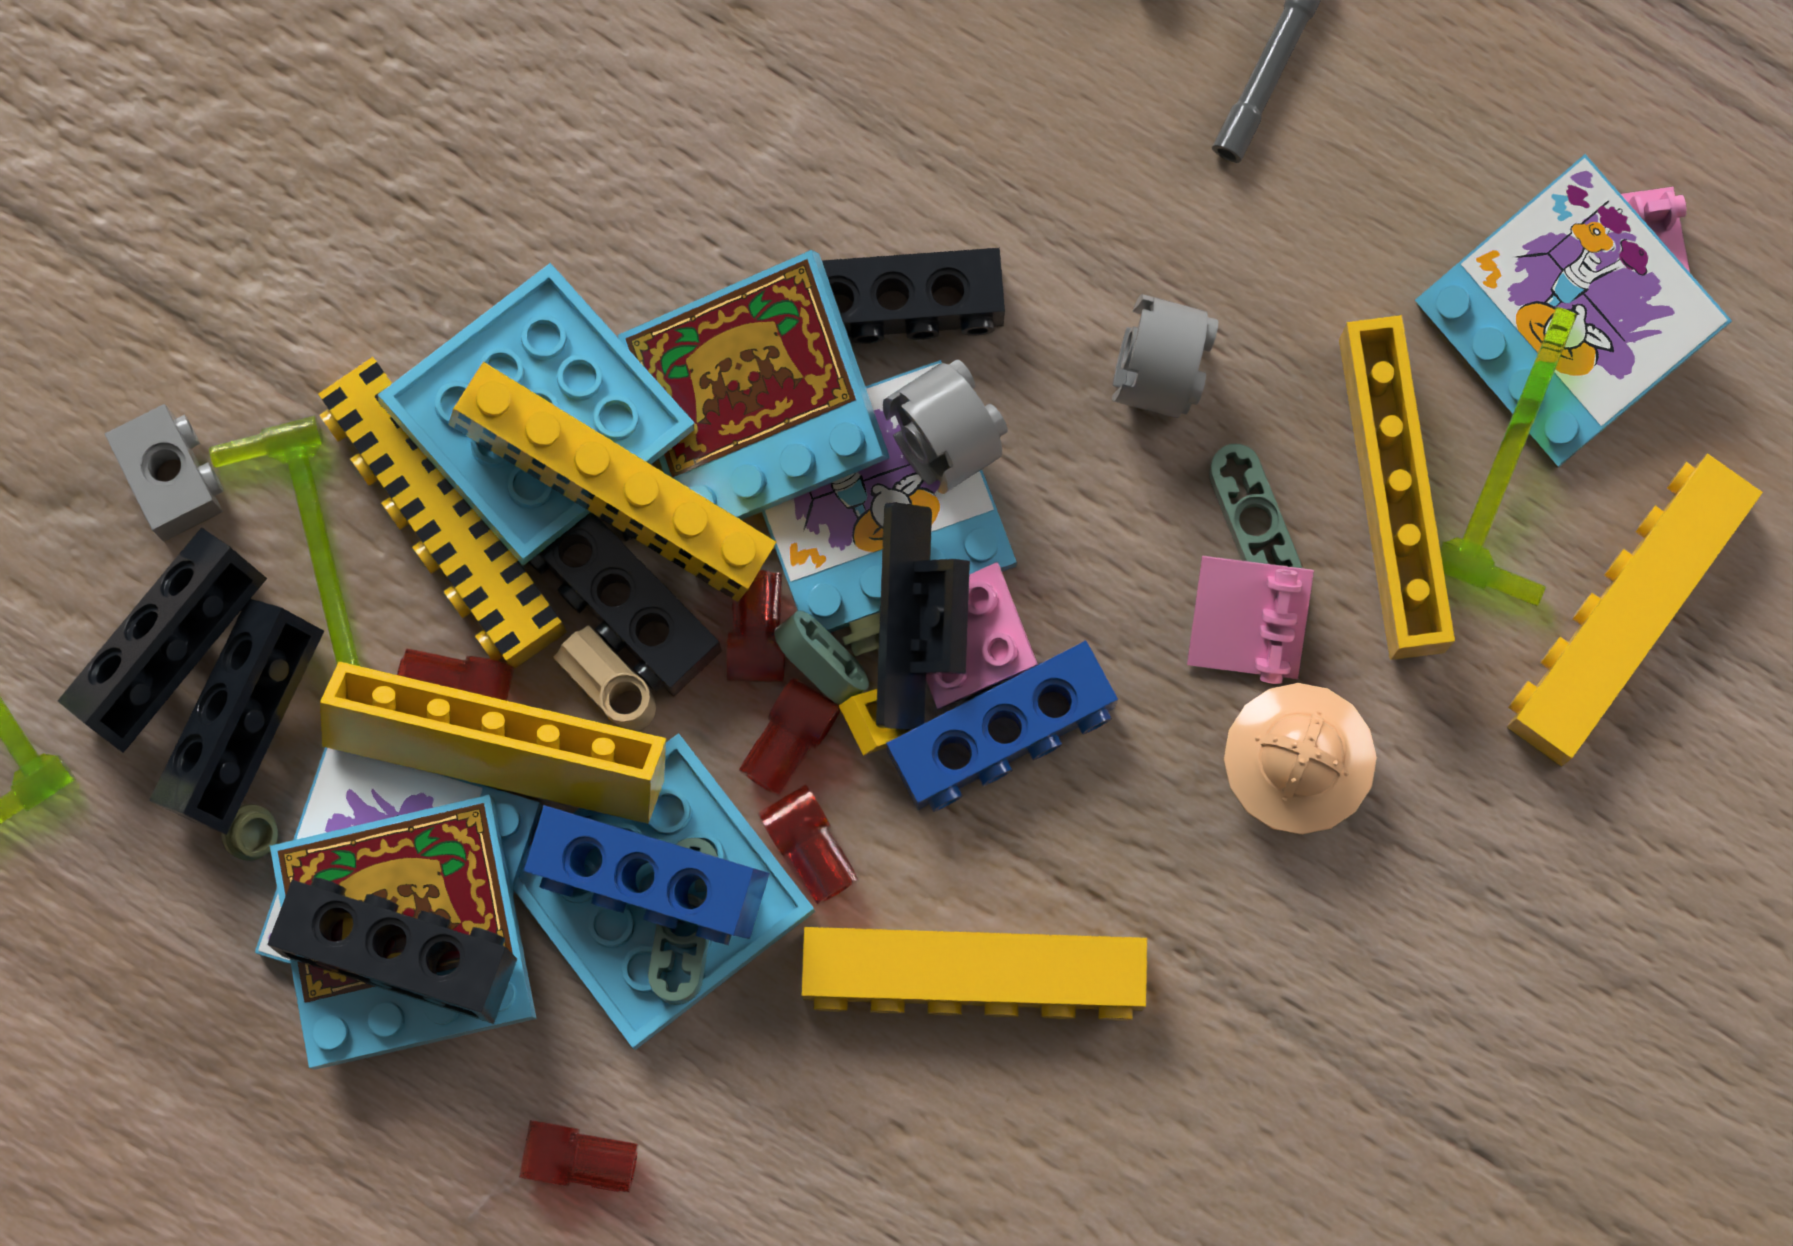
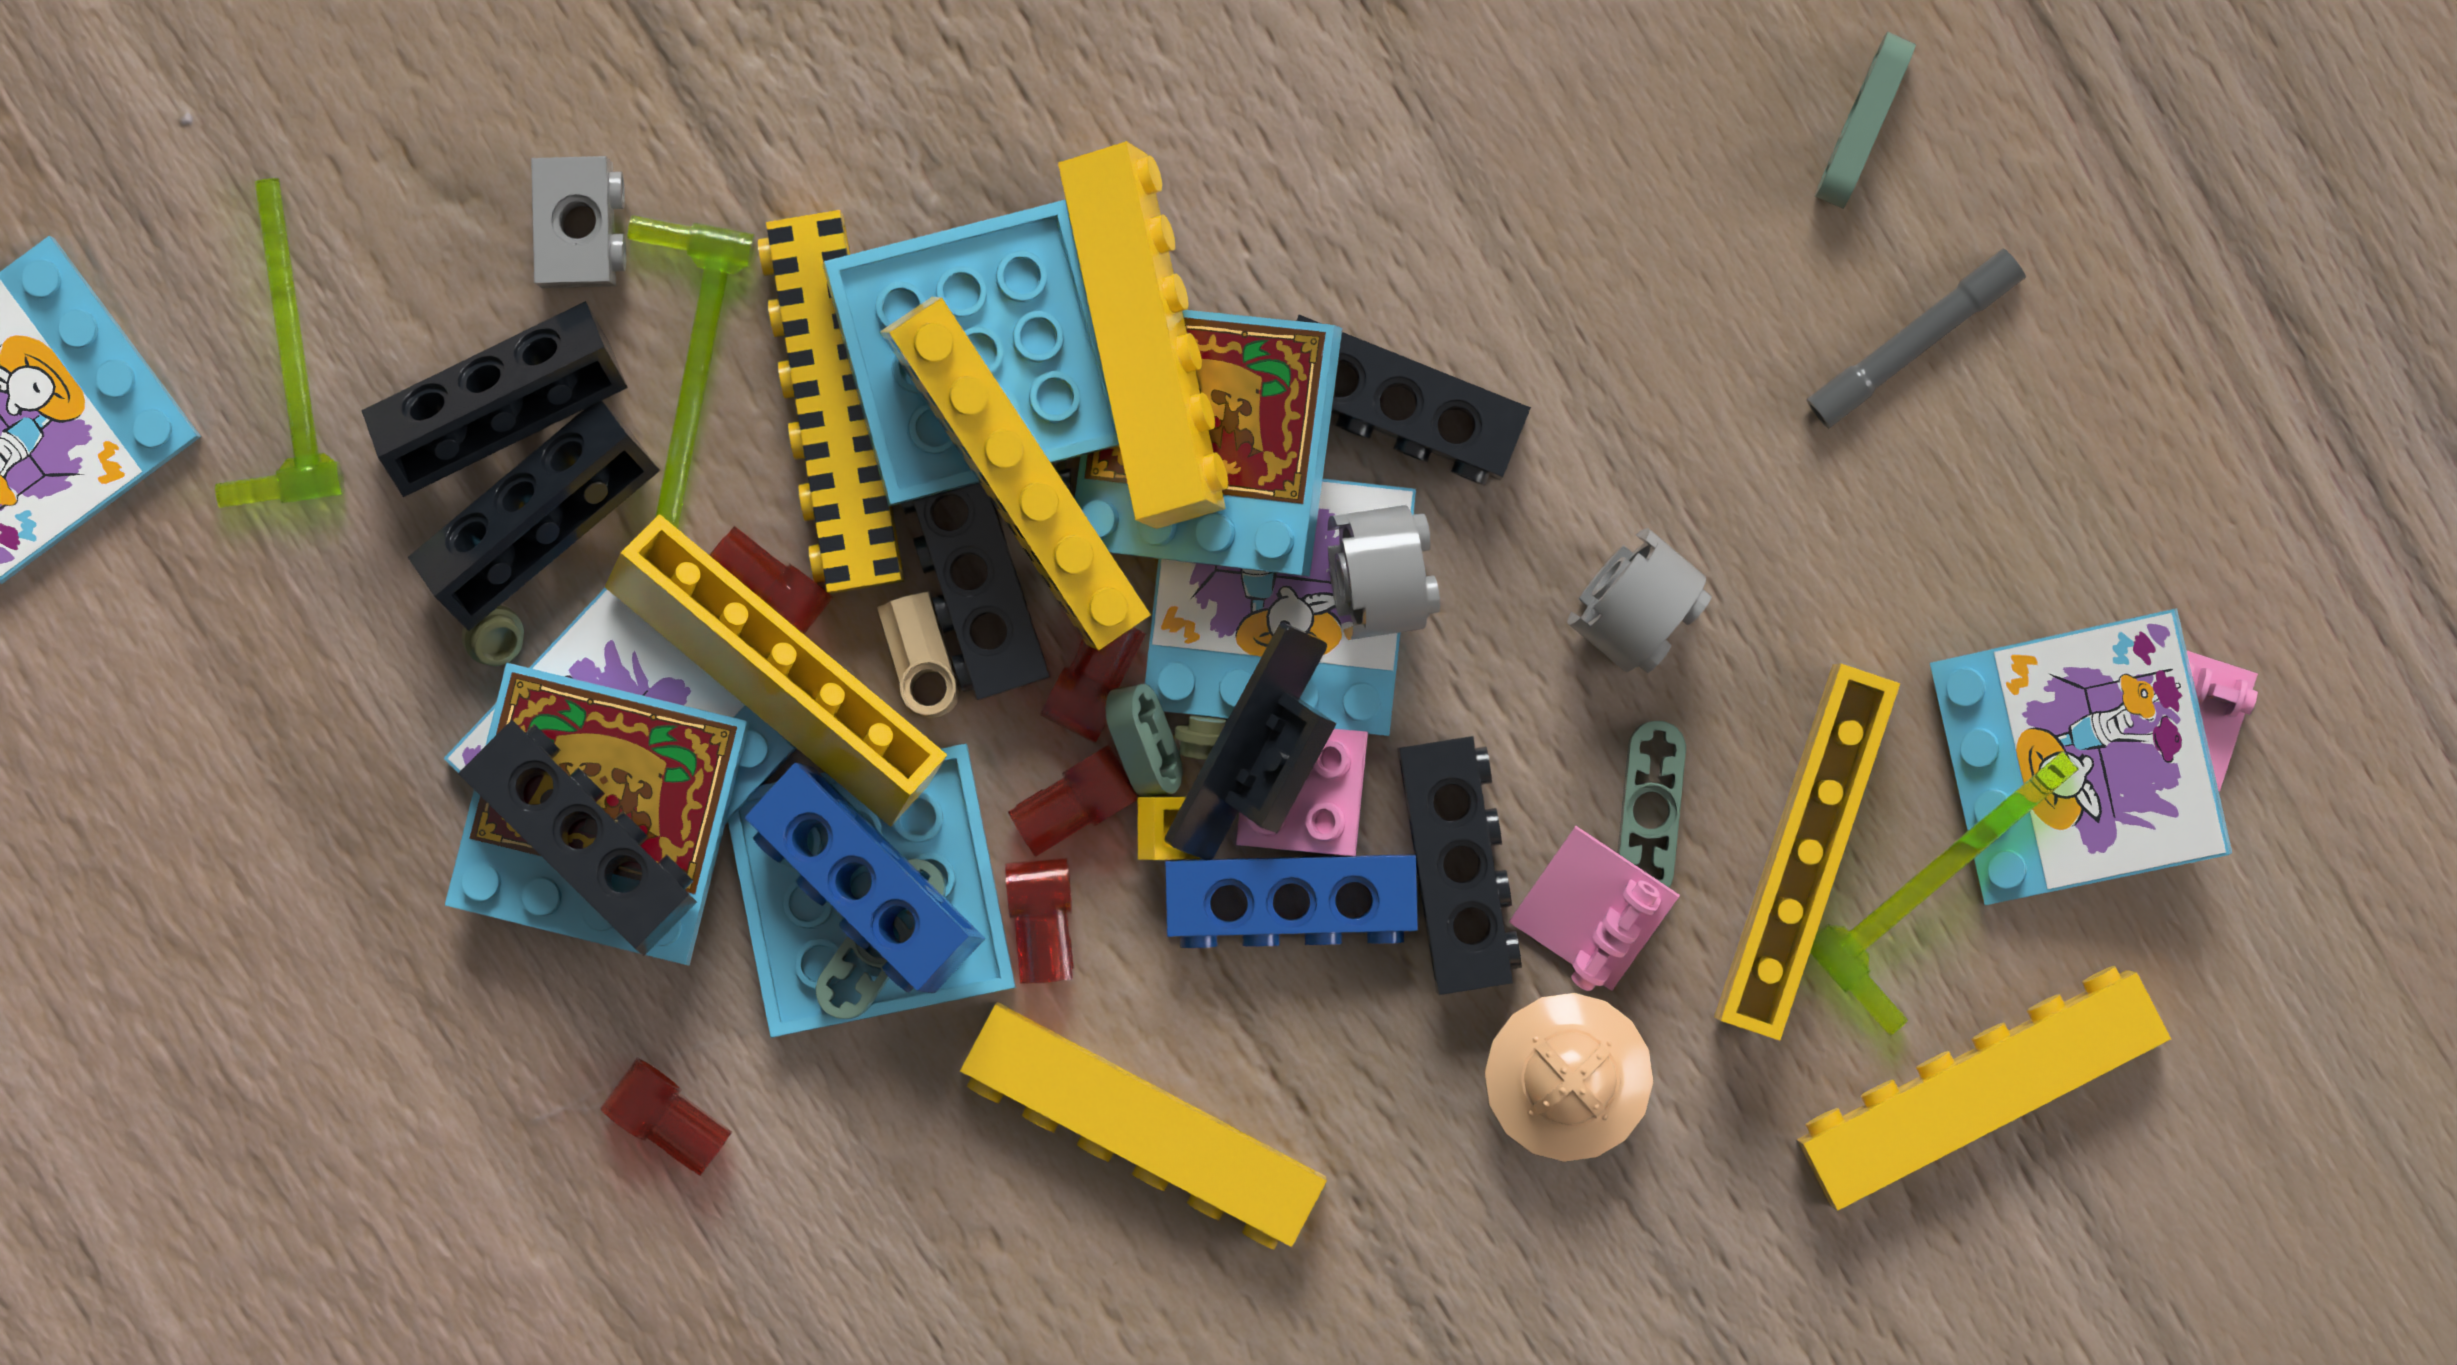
camera: 30 degrees right, 10 degrees up
(664, 337) = (1143, 335): none -> yellow brick
(1159, 714) = (1458, 964): none -> black brick

